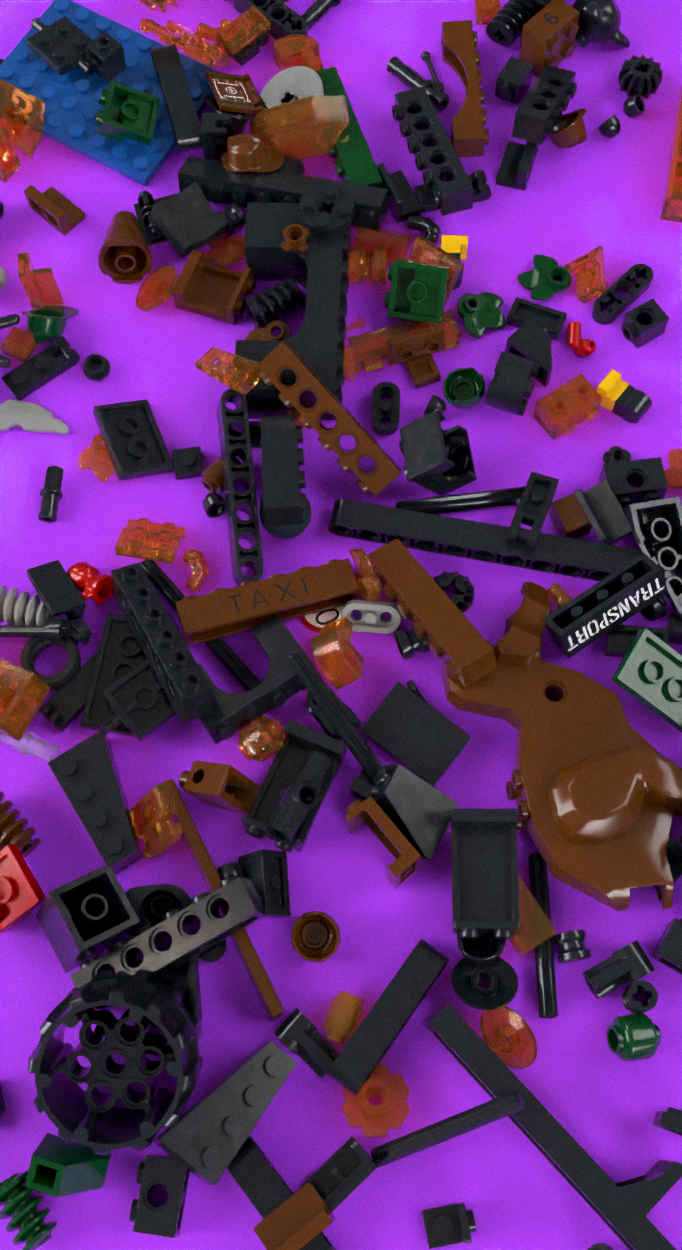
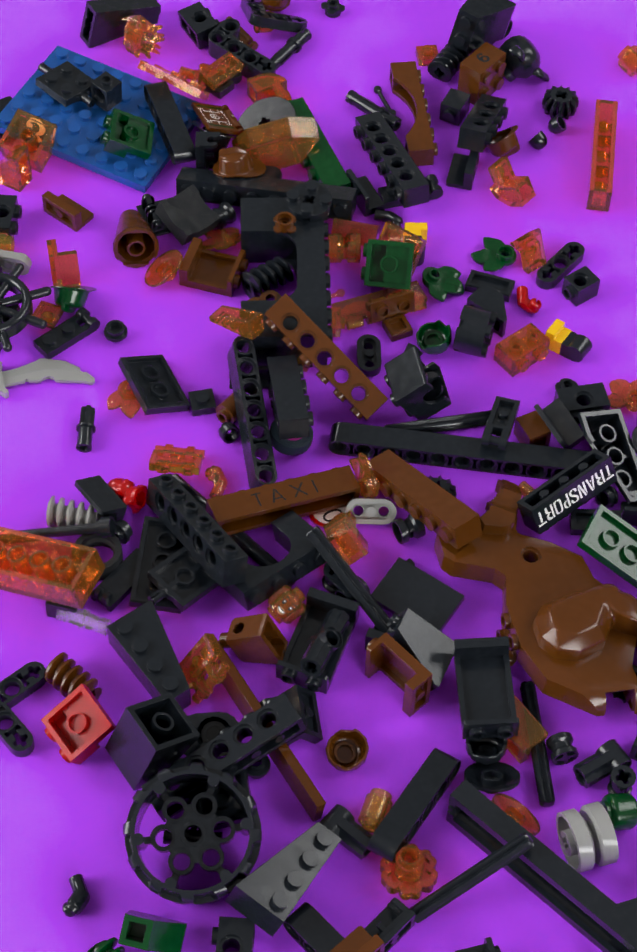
camera: 10 degrees left, 15 degrees down
(568, 189) = (507, 187): none -> brick
(592, 1078) = (587, 837): none -> light grey wheel

